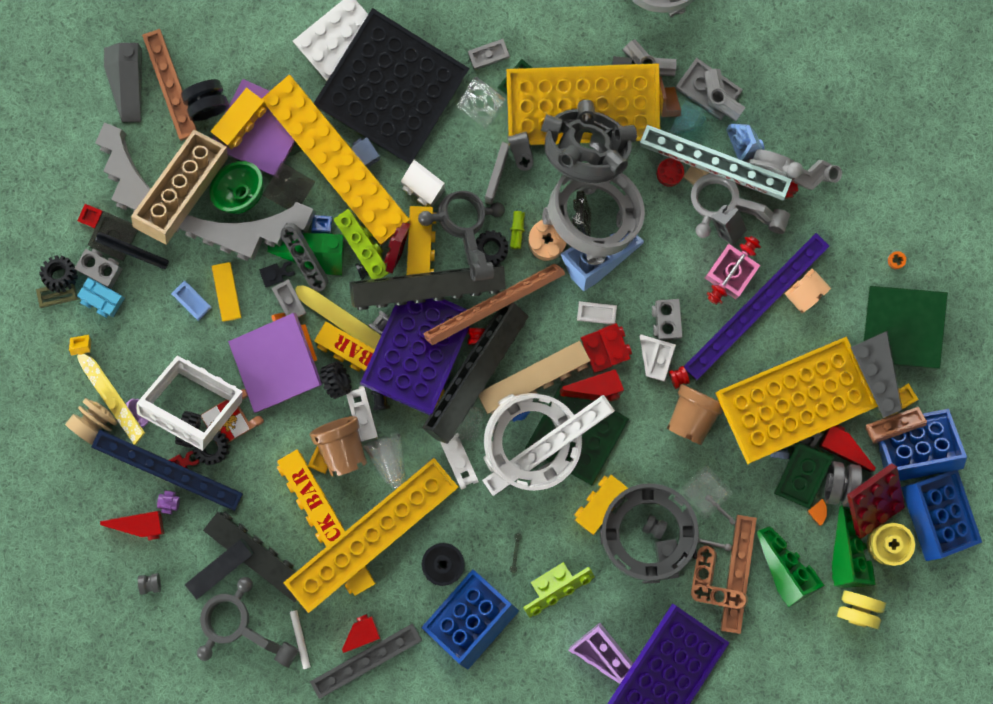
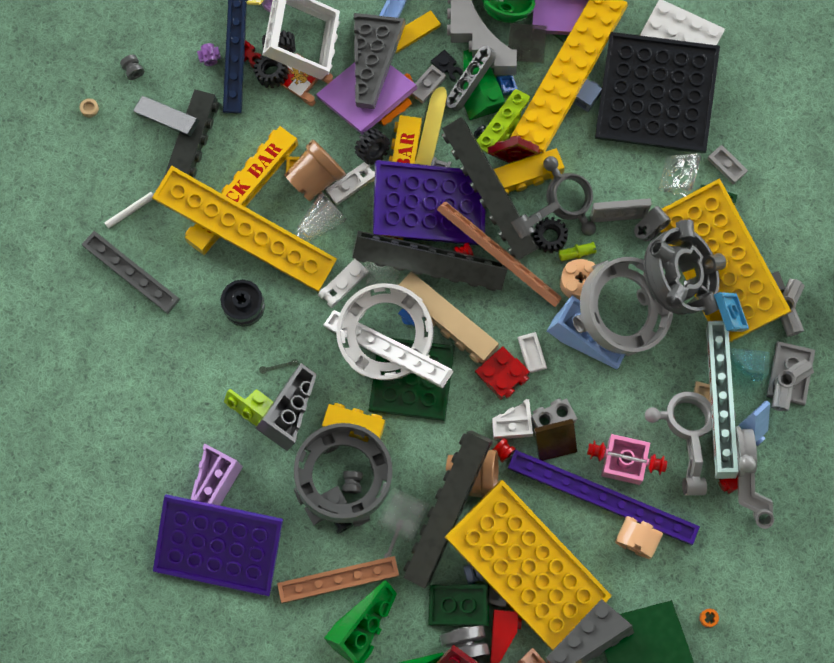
camera: 75 degrees right, 10 degrees down
(140, 525) = (181, 42): red slope -> none
(174, 642) = (89, 107): none -> tan tile
(234, 337) = (374, 50): none -> dark grey wing
(284, 654) = (113, 199): dark grey piece -> none
(361, 633) = (153, 258): red slope -> none
(380, 401) = (367, 194): black bush -> none
(422, 184) = (581, 152): white slope -> none
(470, 619) = (201, 348): blue slope -> none
(569, 562) = (286, 412): none -> dark grey wedge
(582, 219) = (616, 299): clear smoke plate -> none
(596, 386) = (463, 380): red slope -> none
(639, 117) = (731, 311): none -> dark azure tile
(668, 101) = (761, 335): reddish brown panel -> none
(670, 172) = (694, 367): red wheel -> none
(690, 326) = (556, 440): none -> dark brown tile
(706, 584) = (316, 552): nougat beam -> none
(720, 449) = (447, 509): none -> pearl dark grey brick
(727, 547) = (360, 559): light grey hinge -> none
(730, 225) = (669, 438): dark grey hinge -> none
(818, 512) = (428, 635): orange tile -> none

